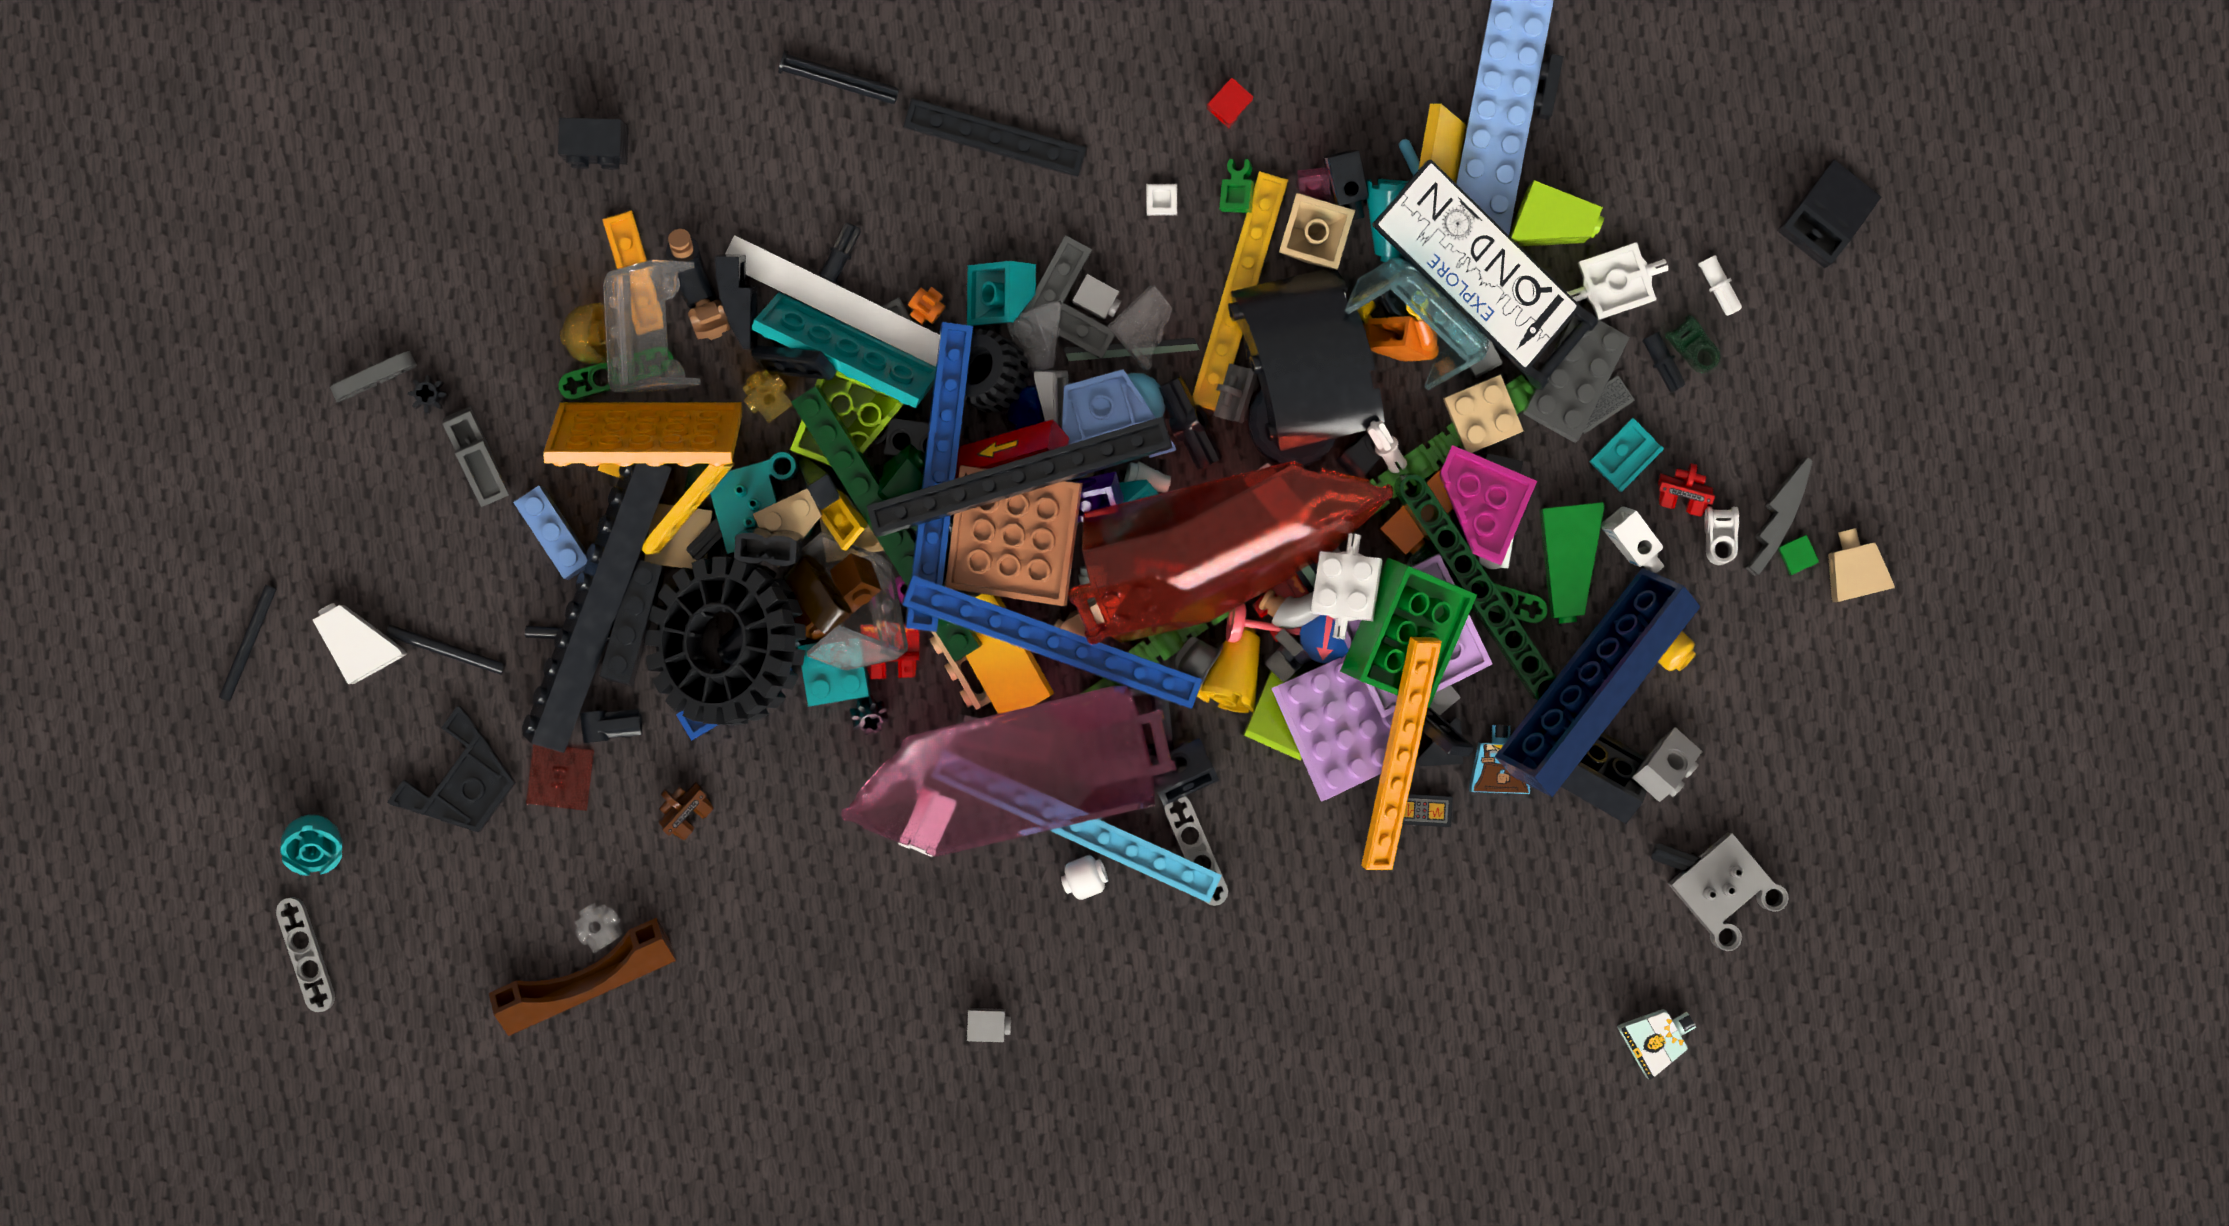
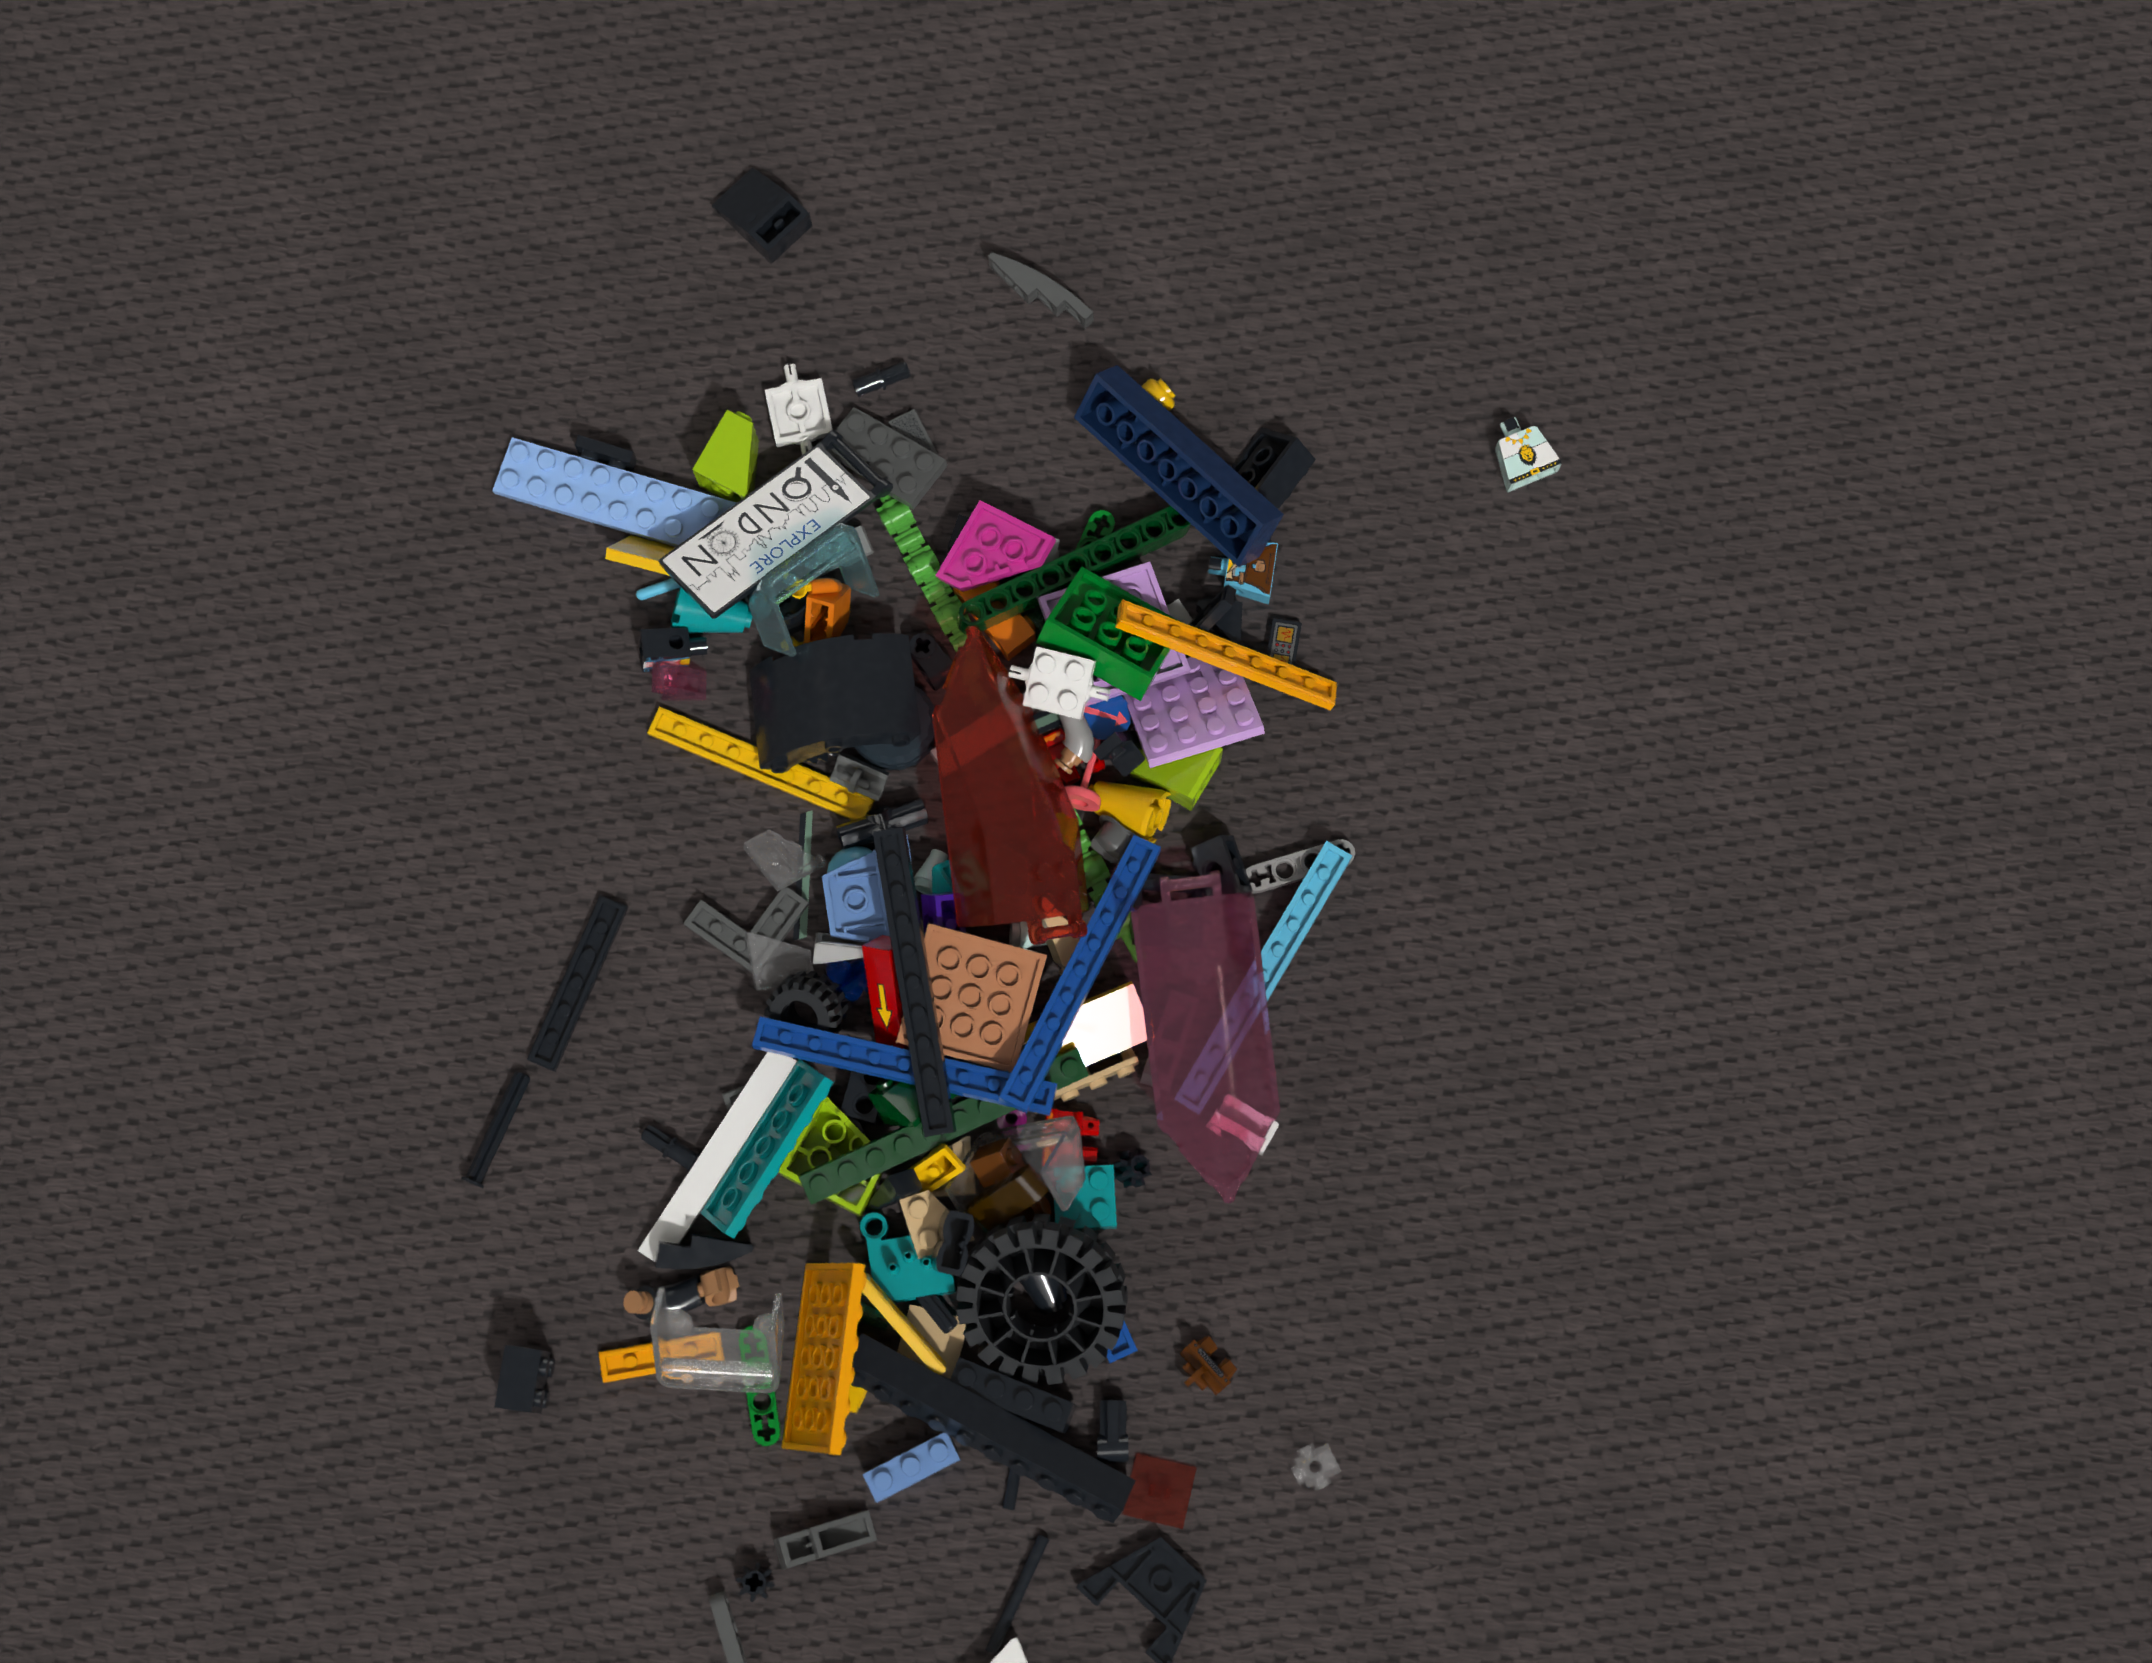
camera: 75 degrees left, 10 degrees down
(530, 1002) = (1385, 1544): reddish brown arch -> none
(586, 333) = (716, 1410): clear yellow cylinder -> none
(766, 395) = (801, 1234): clear yellow brick -> none
(793, 362) = (772, 1201): black tile -> none
(926, 305) = (733, 1066): orange gear -> none
(988, 1025) = (1451, 1086): light grey brick -> none
(999, 291) = (729, 994): teal slope -> none
(1084, 877) = (1314, 975): white head -> none
(1097, 298) = (748, 900): light grey brick -> none
(1161, 199) = (661, 829): white tile -> none
(1229, 103) = (577, 751): red panel -> none
(1237, 191) = (664, 754): green plate -> none
(1316, 231) = (713, 682): tan slope -> none
(1386, 446) = (929, 636): white axle -> none
(1483, 414) = (909, 545): tan plate -> none
(1570, 549) = (1052, 483): green slope -> none
(1626, 455) = (965, 422): teal plate -> none
(1629, 529) = (1044, 422): white torso -> none
(1667, 765) = (1264, 413): light grey brick -> none
(1693, 343) = (867, 349): clear green piece -> none
(1698, 494) = (1011, 361): red hips -> none
(1719, 884) = (1382, 381): light grey piece -> none
(1720, 285) = (815, 319): white axle -> none
(1721, 532) = (1048, 344): white piece -> none
(1798, 555) = (1079, 278): green tile -> none
(1857, 569) = (1098, 226): tan torso -> none

